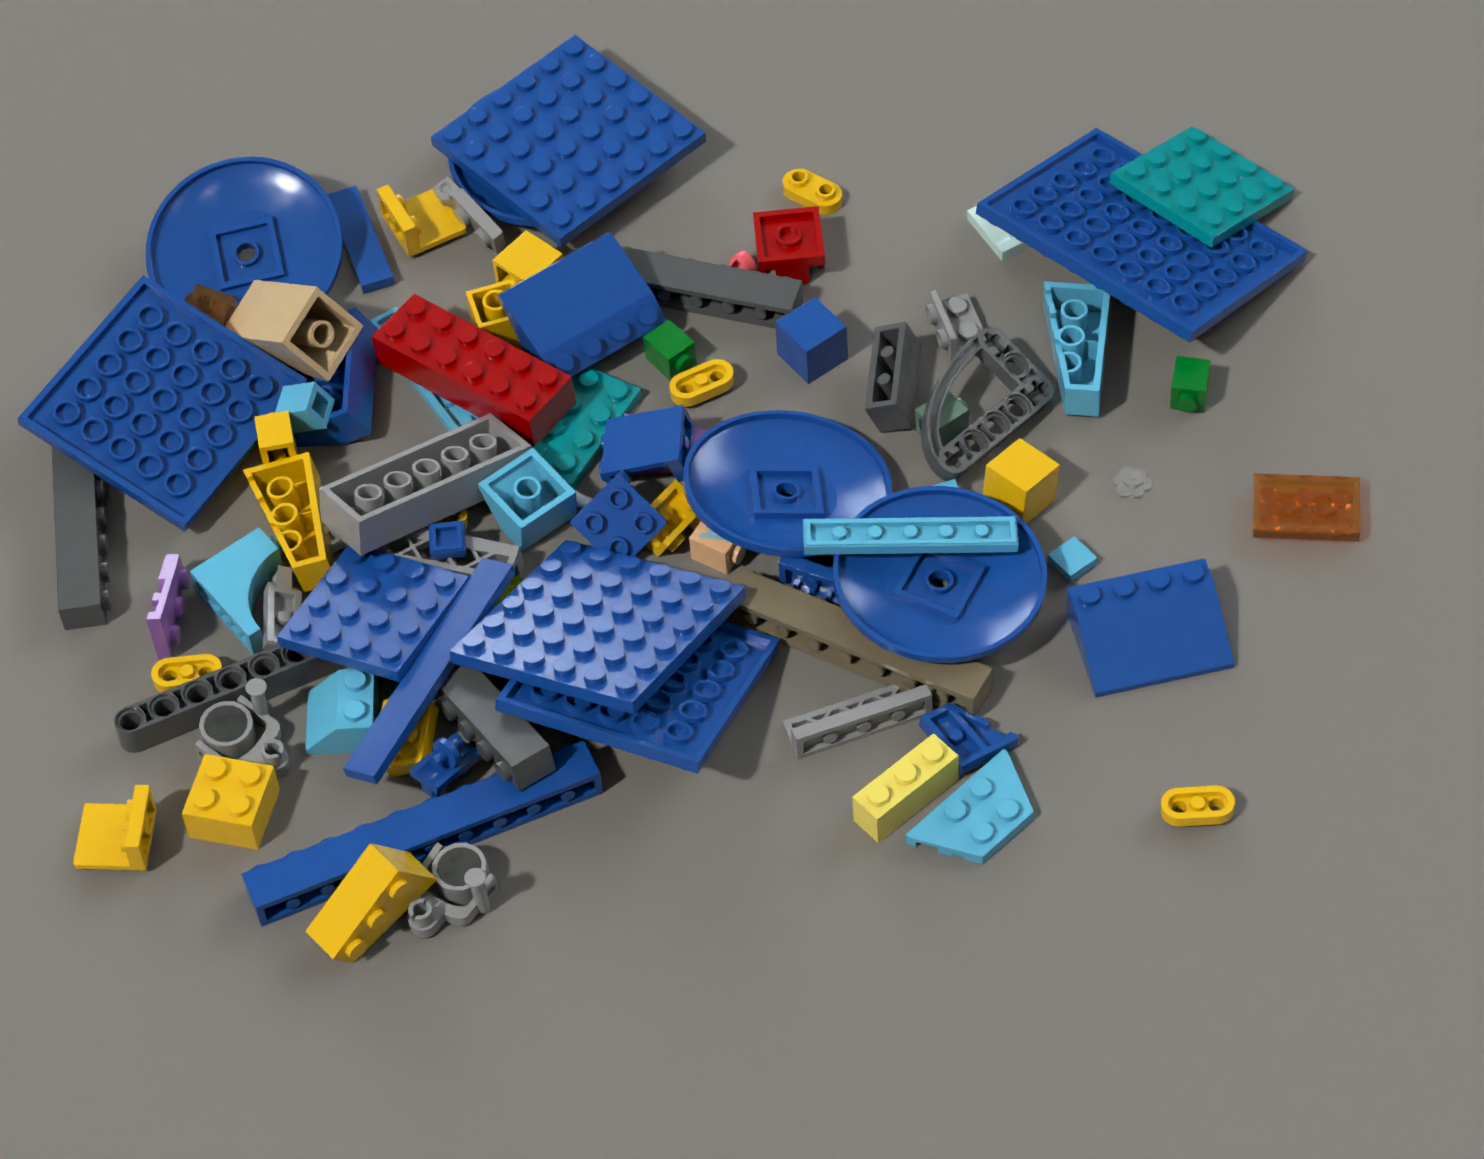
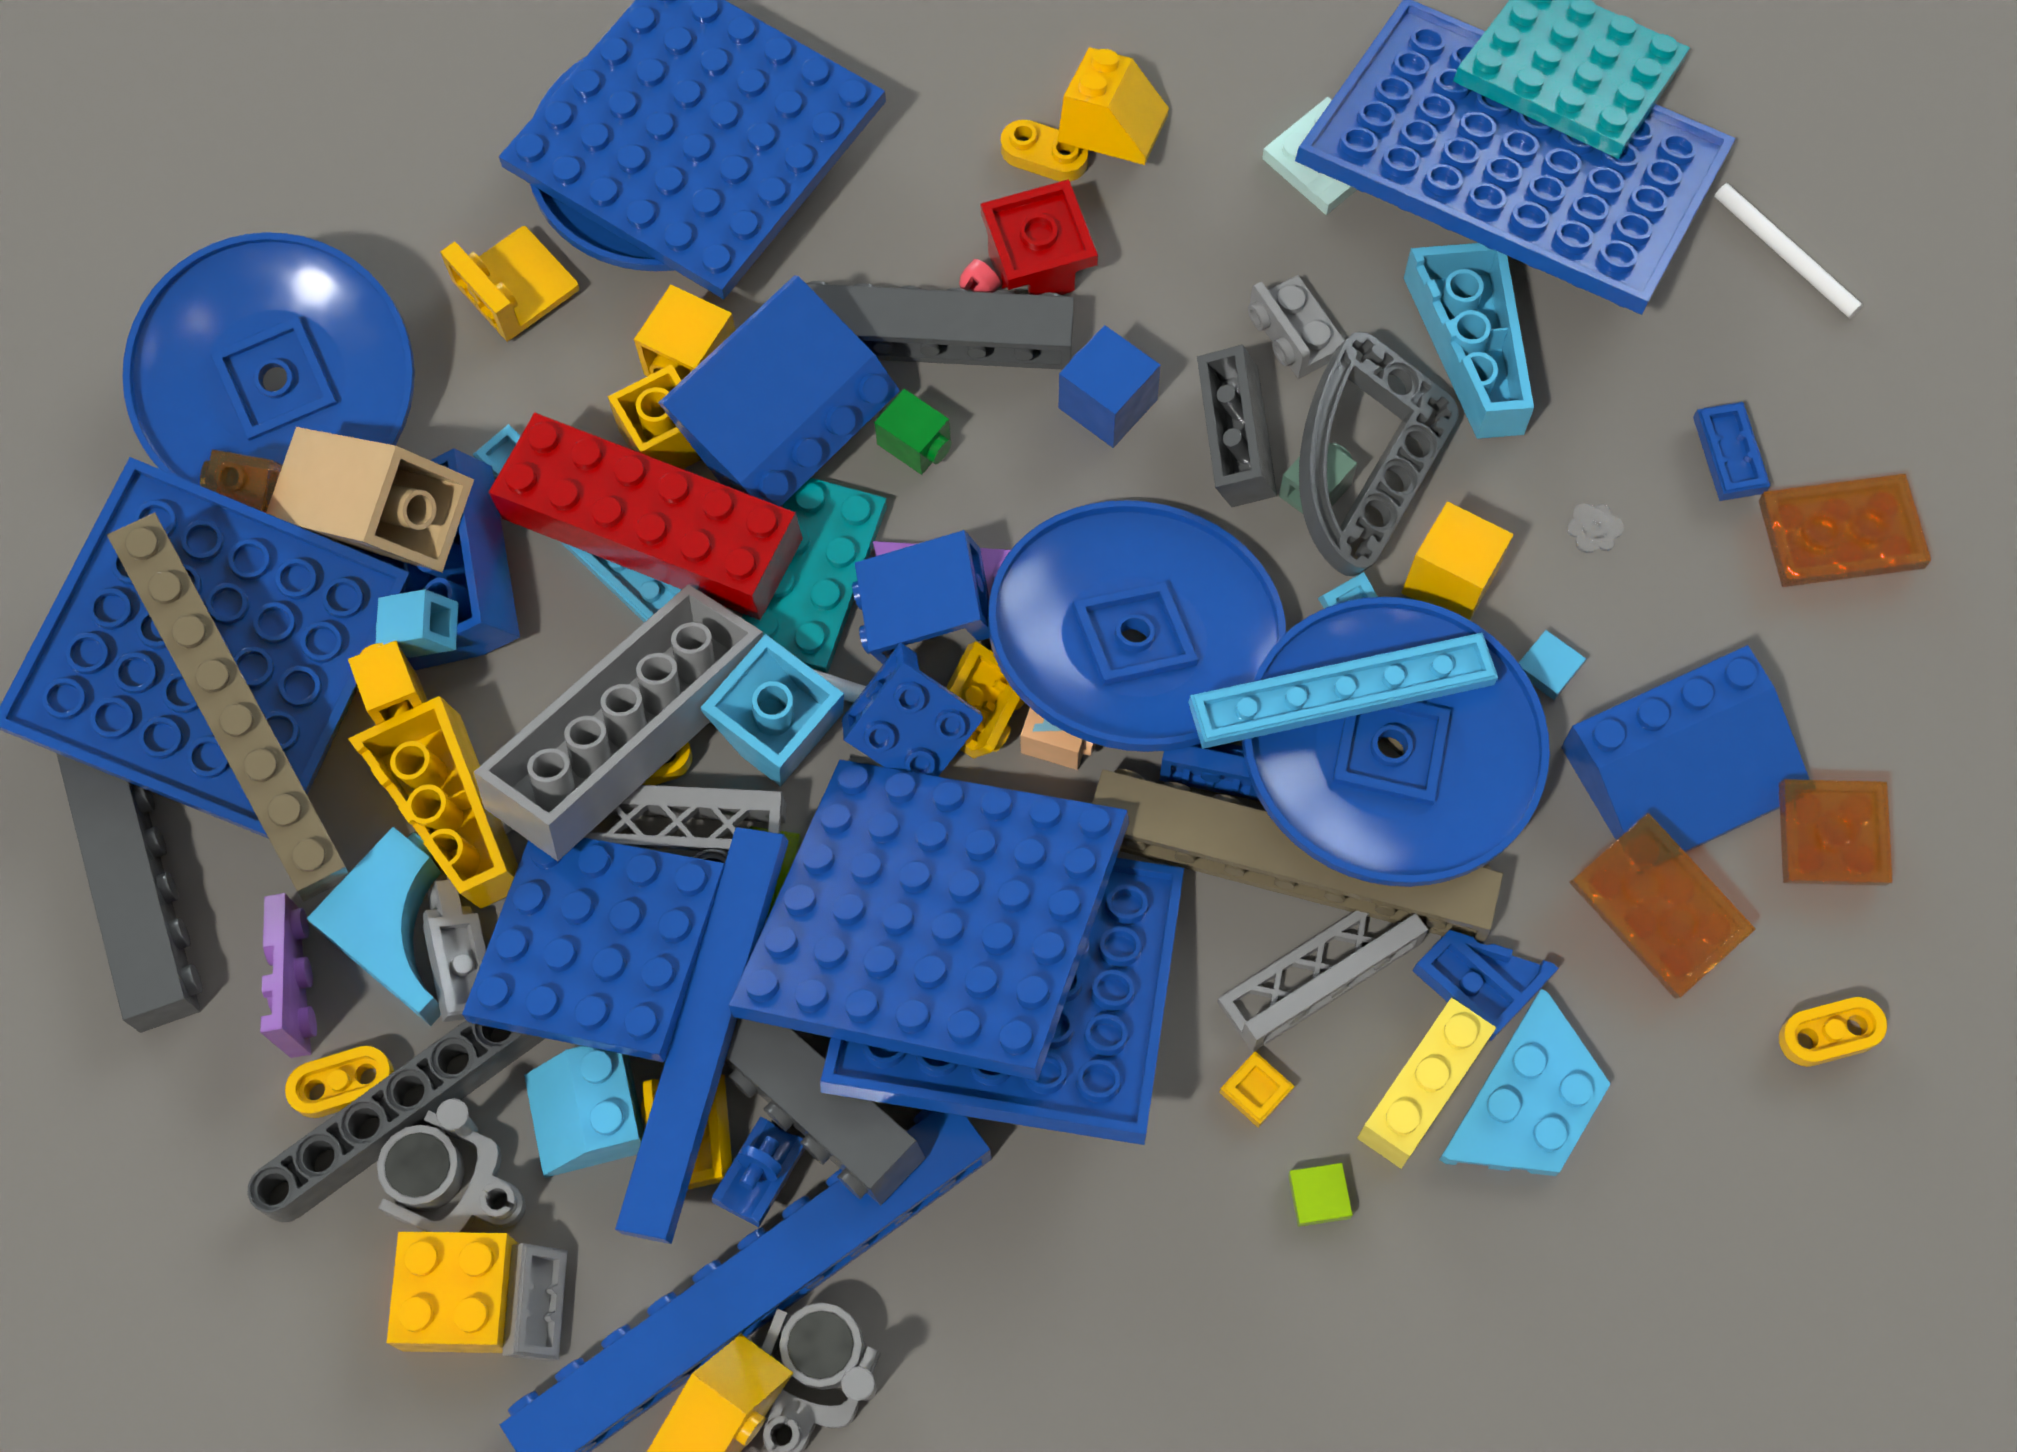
camera: 15 degrees left, 15 degrees up
(117, 833) = (292, 1378): yellow bracket -> none
(171, 433) = (229, 707): none -> dark tan brick
(281, 817) = (535, 1302): none -> light grey plate
(361, 241) = (432, 325): blue tile -> none
(447, 540) = (675, 802): blue tile -> none
(470, 213) = (579, 262): light grey hinge -> none
(698, 382) = (966, 476): yellow plate -> none
(792, 779) = (1256, 1089): none -> yellow tile
(817, 845) = (1320, 1194): none -> lime tile
(863, 167) = (1112, 108): none -> yellow slope
(1100, 709) = (1662, 905): none -> clear orange plate
(1190, 384) = (1638, 367): green brick -> none
(1237, 687) = (1835, 832): none -> clear orange plate
(1241, 446) = (1731, 451): none -> blue plate
(1326, 329) = (1788, 250): none -> white bar

